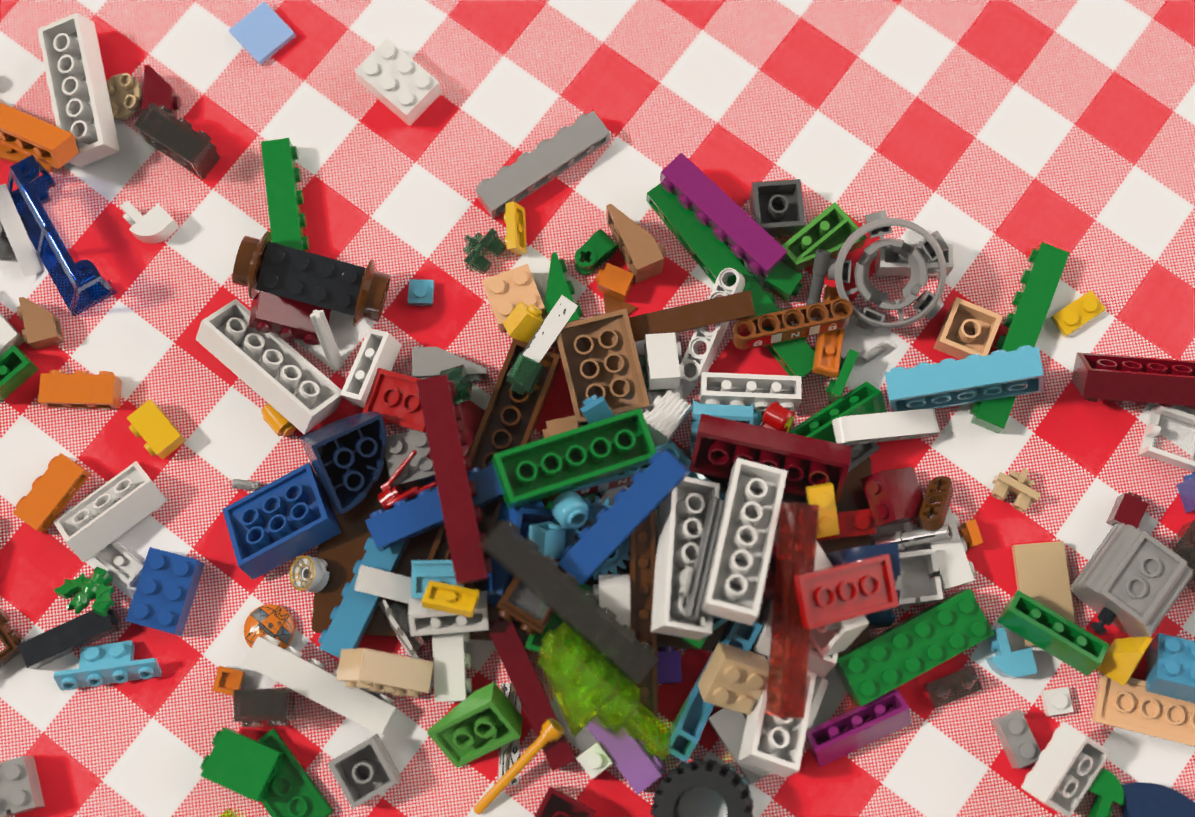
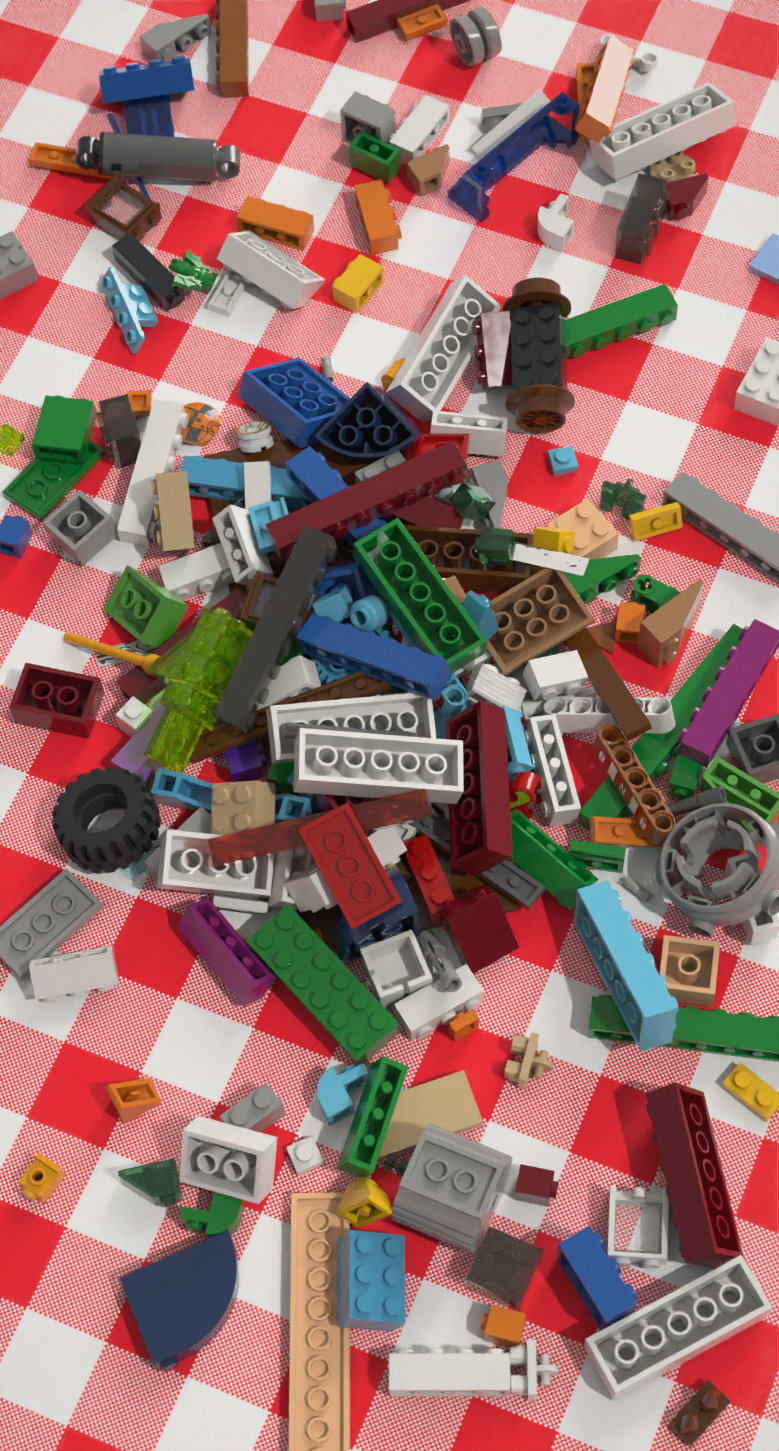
camera: 80 degrees right, 15 degrees down
(165, 591) = (208, 331): blue brick -> none
(326, 339) = (483, 384): white axle -> none
(394, 494) = (348, 472): red plant -> none
(450, 598) = (253, 533): yellow plate -> none
(686, 581) = (322, 720): white piece -> none
(827, 516) = (436, 846): yellow plate -> none
(885, 426) = (551, 903): white beam -> none
(938, 510) = (484, 974): reddish brown beam -> none
(953, 686) = (294, 1045): clear smoke tile -> none

